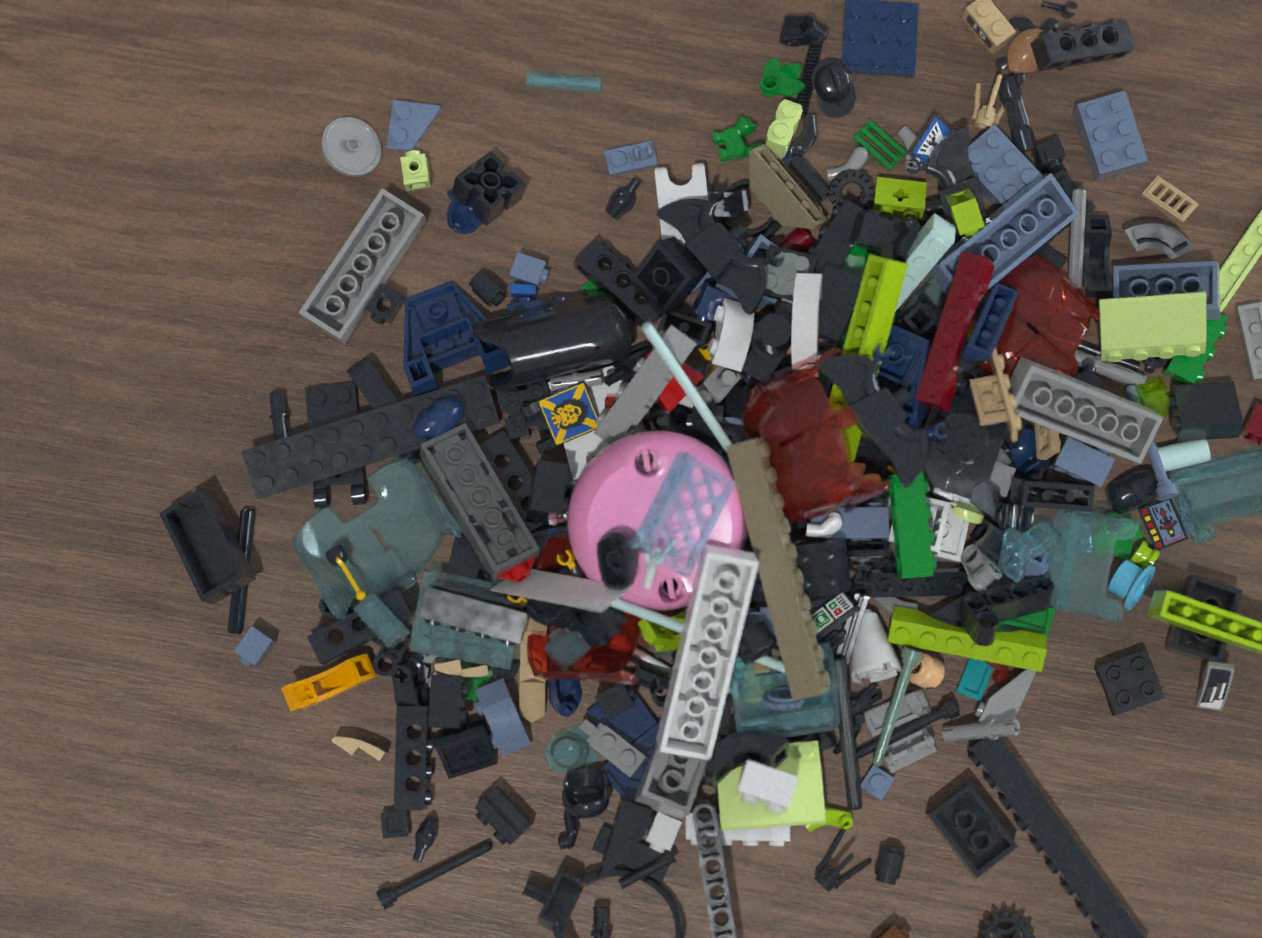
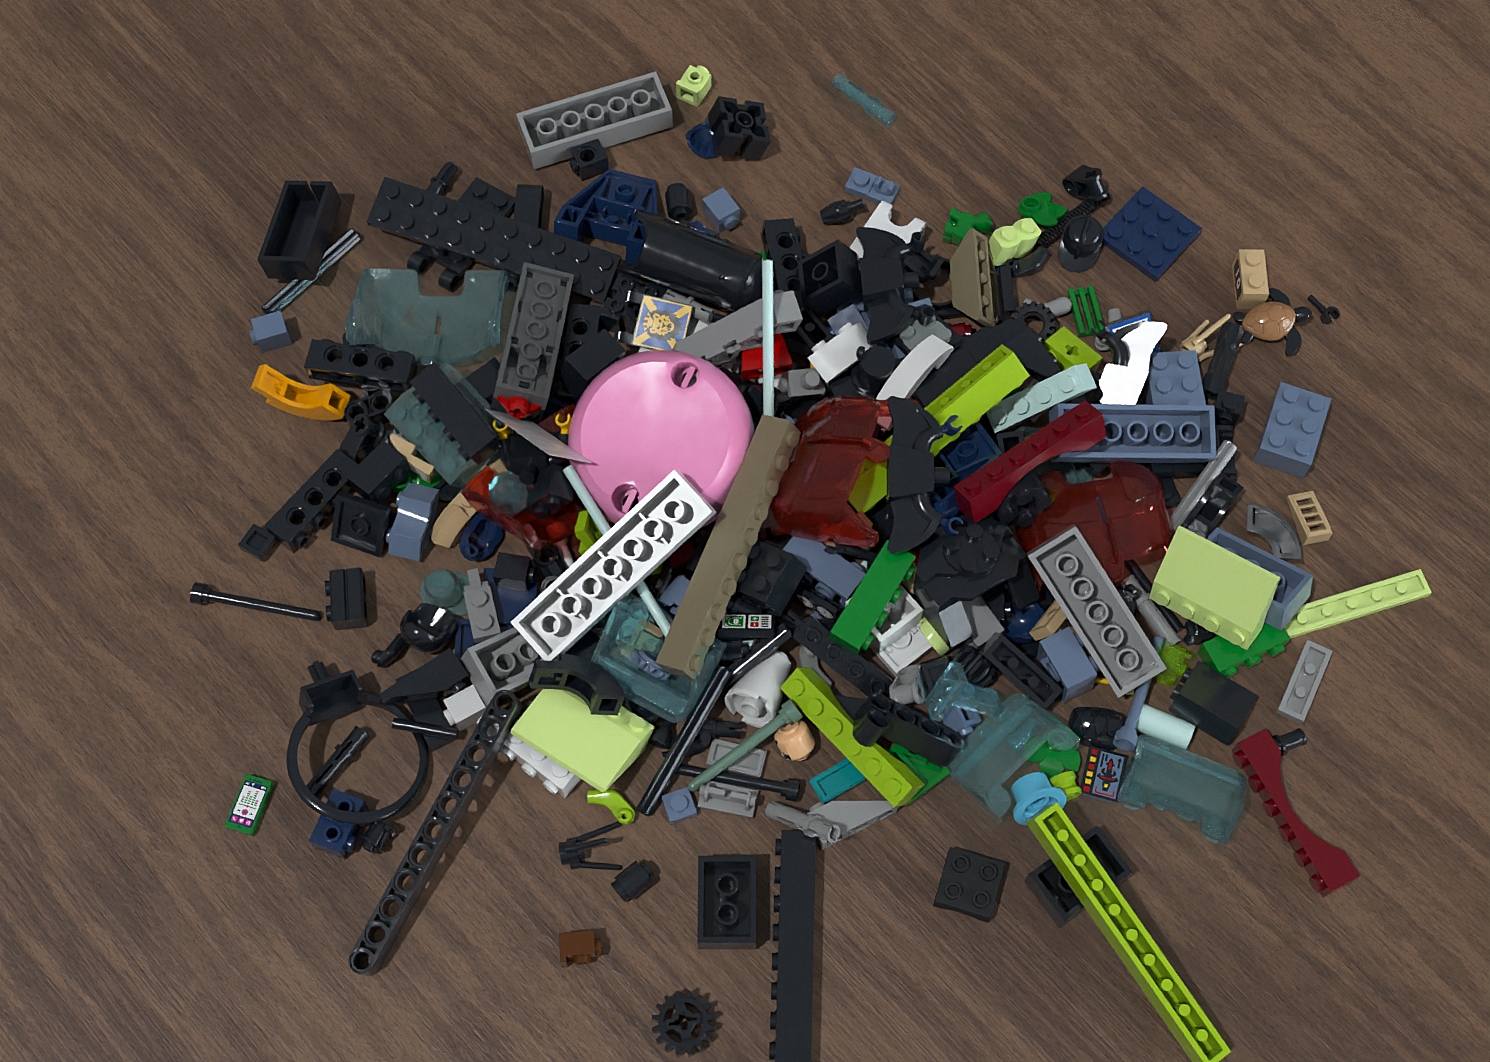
camera: 30 degrees right, 15 degrees down
(338, 557) = (389, 312): hinge -> none
(351, 146) = (659, 35): light grey shield -> none
(353, 746) = (281, 461): tan slope -> none
(381, 620) = (377, 363): clear light blue brick -> none
(408, 124) = (718, 52): sand blue wing -> none
(424, 838) = (270, 569): black piece -> none
(438, 418) = (555, 255): dark blue arm -> none
(523, 290) = (705, 218): blue tile -> none
(617, 560) = (598, 432): black piece -> none
(652, 566) = (624, 459): white plant -> none
(668, 498) = (673, 408): clear light blue fence -> none
(755, 642) = (661, 593): black brick -> none
(766, 787) = (574, 716): white brick -> none
(827, 528) = (801, 551): white arm -> none
(905, 239) = (1042, 373): black arm -> none
(918, 702) = (767, 762): light grey tile -> none
(965, 212) = (1114, 385): lime brick -> none
(991, 323) = (1066, 477): dark blue slope -> none
(992, 398) = (1023, 535): tan bracket -> none
(1001, 674) = (863, 785): clear red arm -> none
(1082, 45) = (1319, 342): black brick -> none
(1215, 685) = (1045, 941): slope -> none

